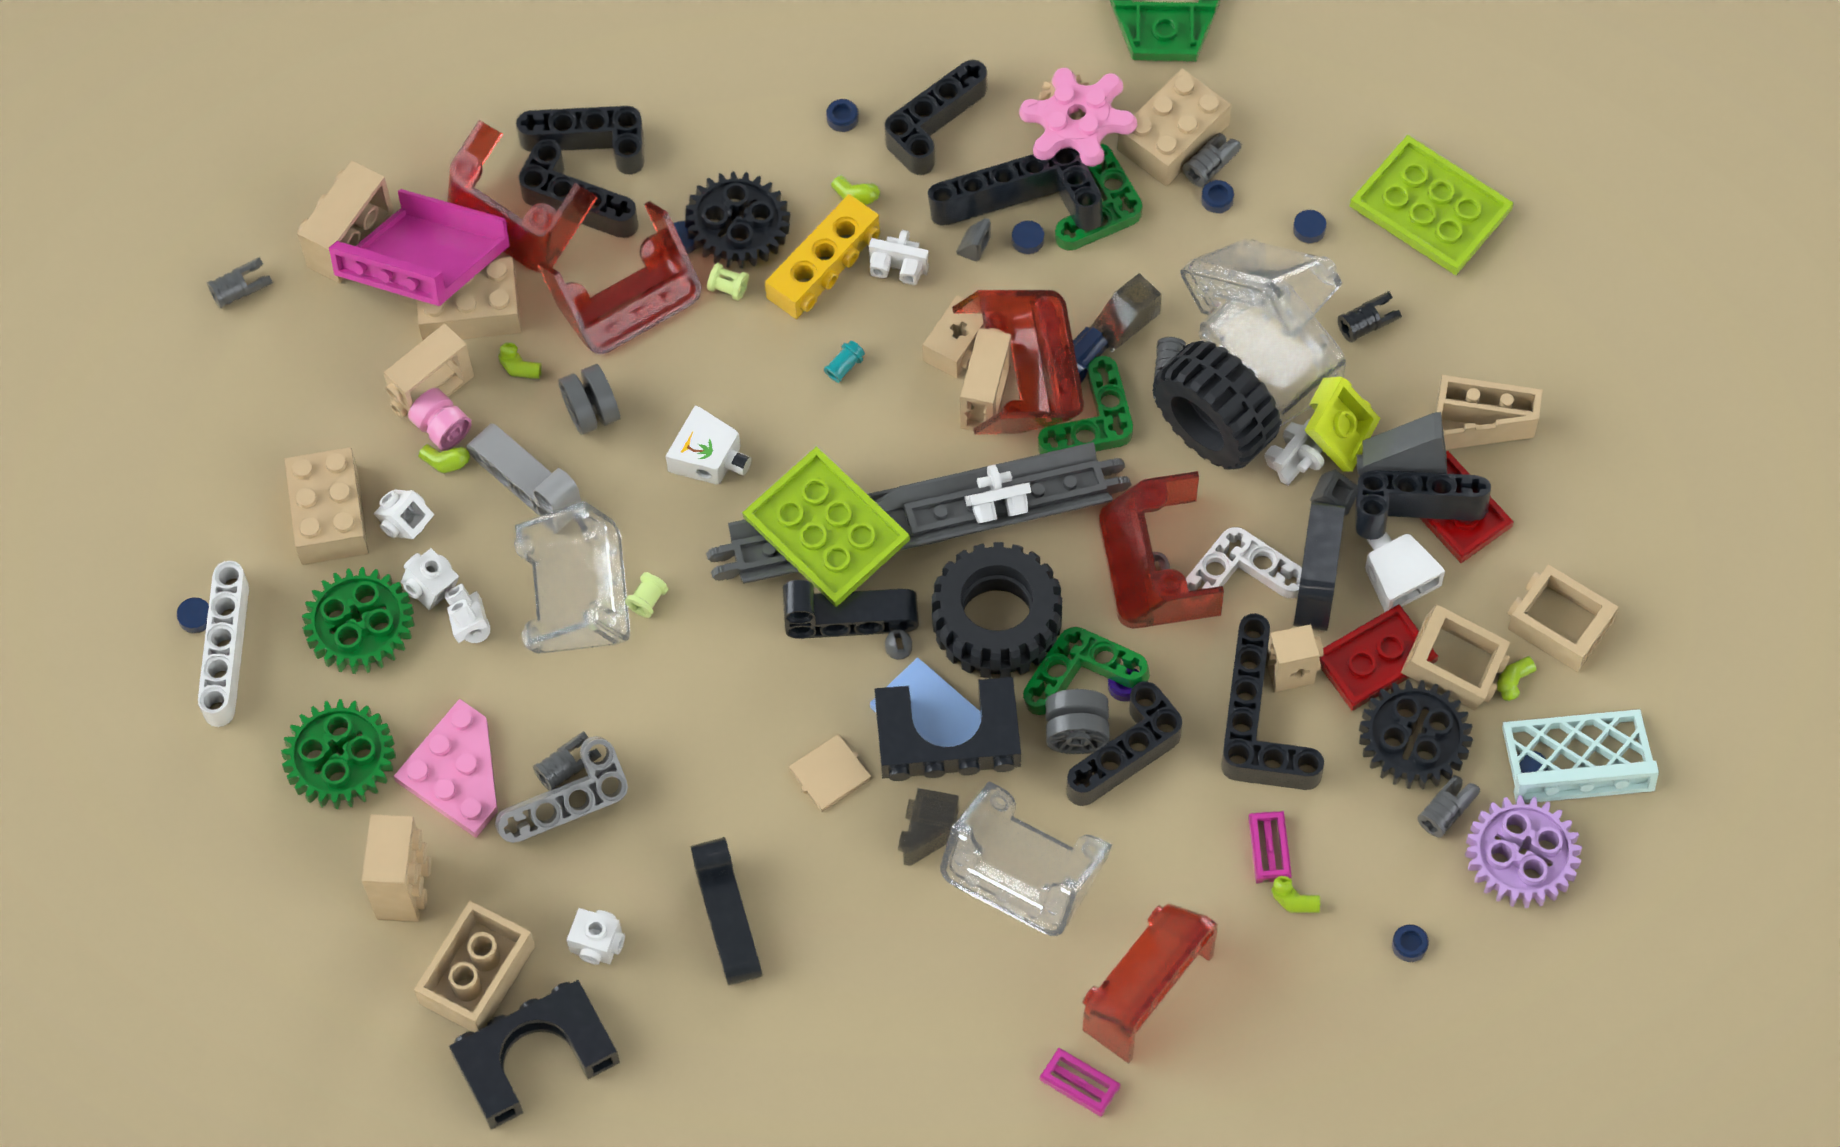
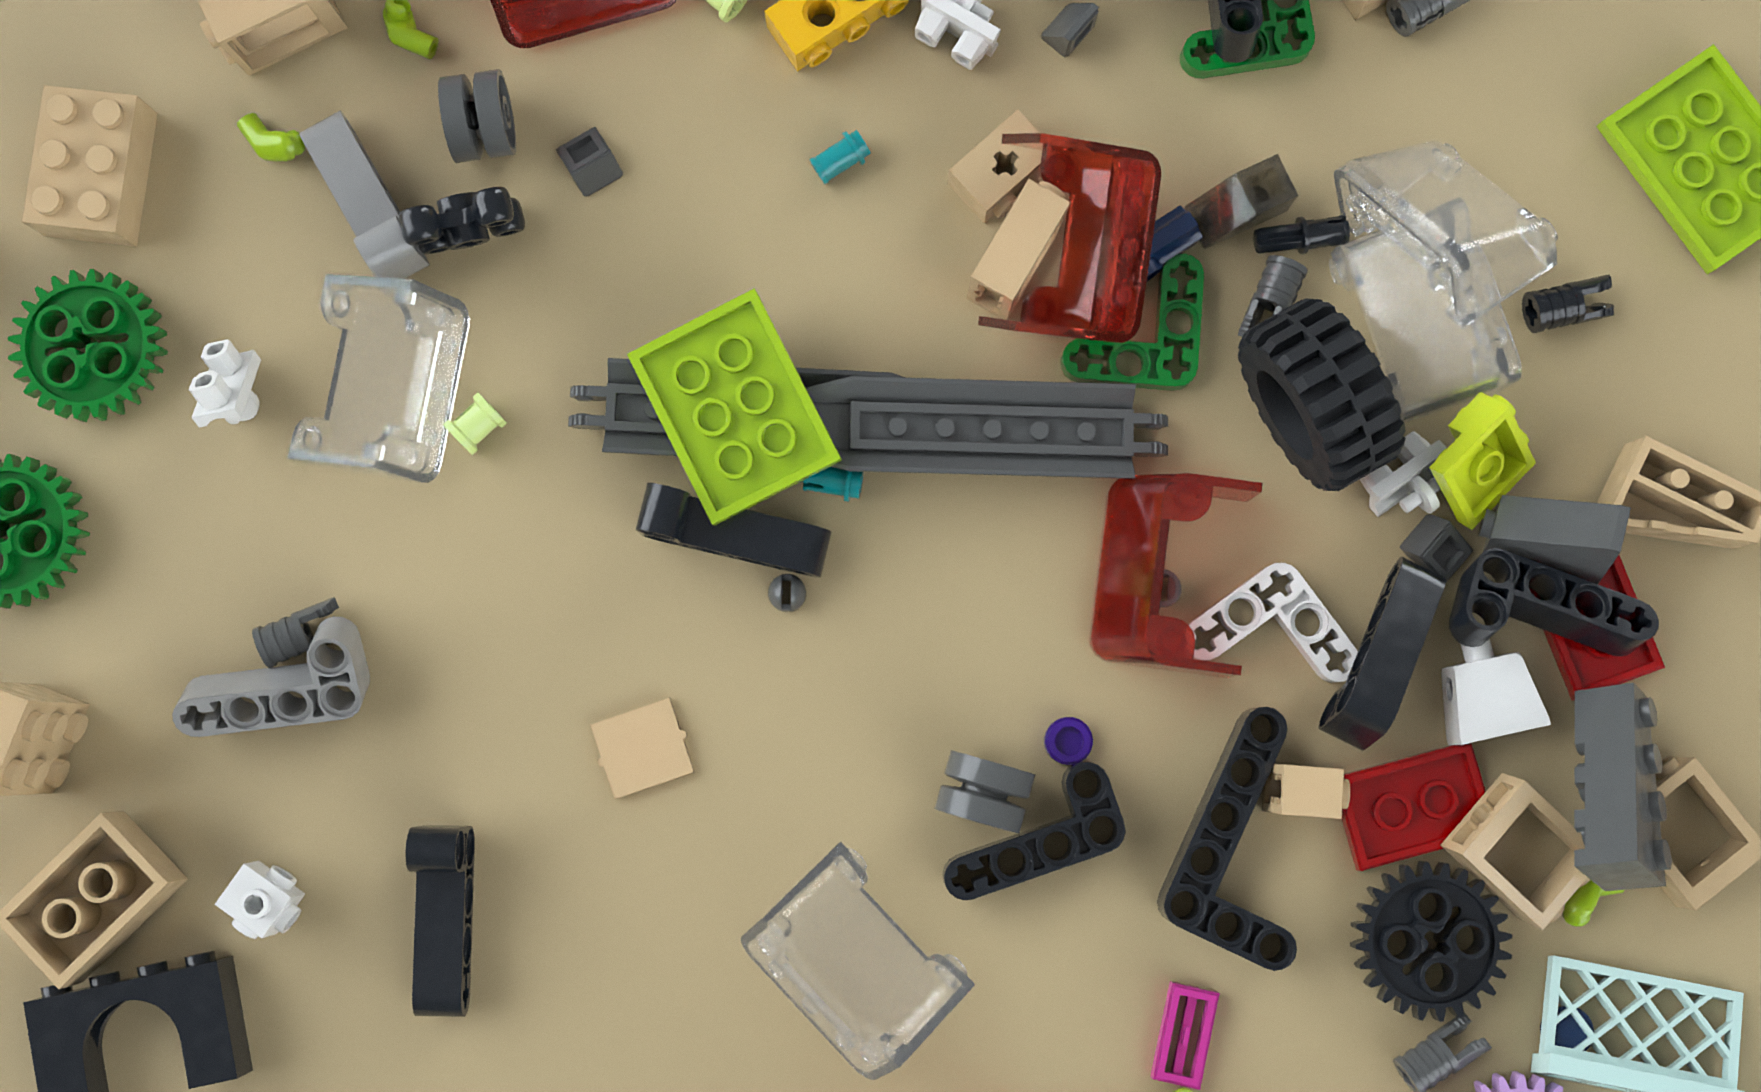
camera: 15 degrees right, 20 degrees up
(403, 514) = (185, 210): white brick -> none
(428, 578) = (198, 331): white brick -> none
(439, 418) = (274, 81): bright pink wheel -> none
(455, 769) = (158, 596): bright pink plate -> none
(603, 462) = (462, 220): none -> black gear
(670, 412) = (590, 162): none -> dark grey slope
(706, 449) = (616, 233): white torso -> none
(907, 563) = (836, 482): none -> teal pin
(908, 754) = (740, 763): black arch -> none
(930, 824) = (747, 873): clear smoke slope -> none
(937, 708) = (798, 708): light blue tile -> none
(983, 502) = (979, 426): white hips -> none
(996, 570) = (942, 530): black tyre -> none
(1027, 237) = (1144, 43): dark blue tile -> none
(1084, 657) = (1025, 689): green beam -> none
(1174, 324) = (1302, 235): none -> black axle
(1217, 196) = (1420, 57): dark blue tile -> none
(1309, 226) = (1531, 140): dark blue tile -> none
(1500, 593) = (1619, 789): none -> dark grey wedge

